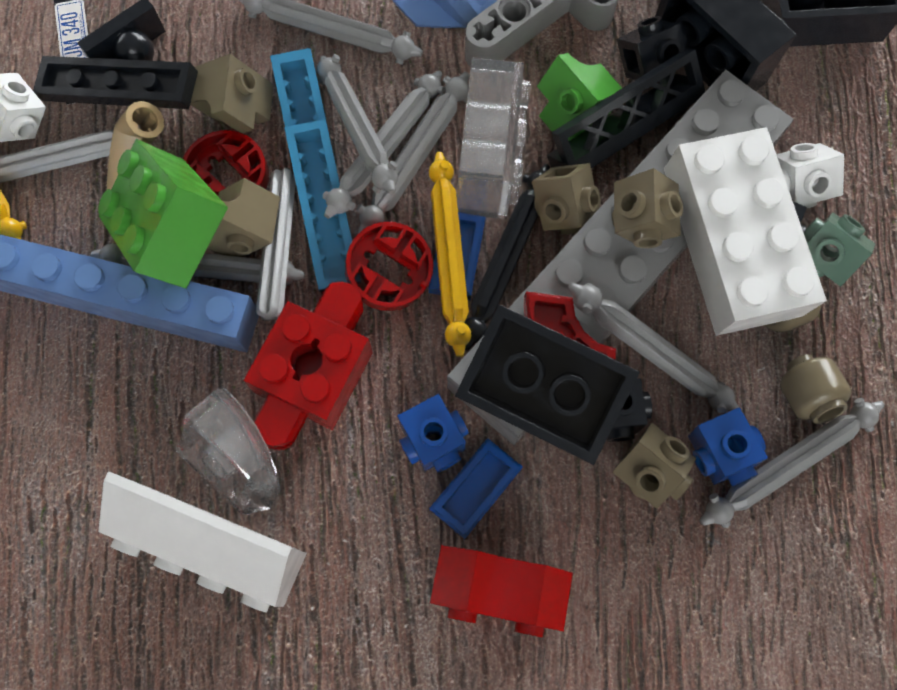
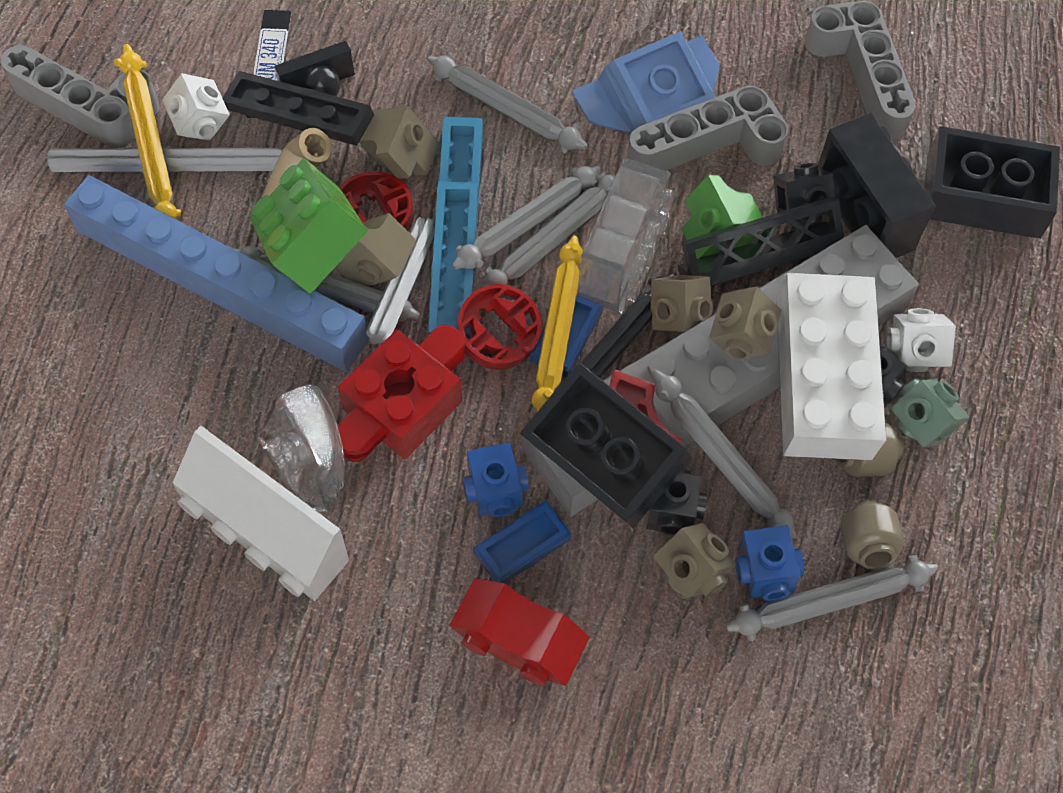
camera: 15 degrees right, 10 degrees down
(358, 125) = (505, 193): light grey wheel -> none

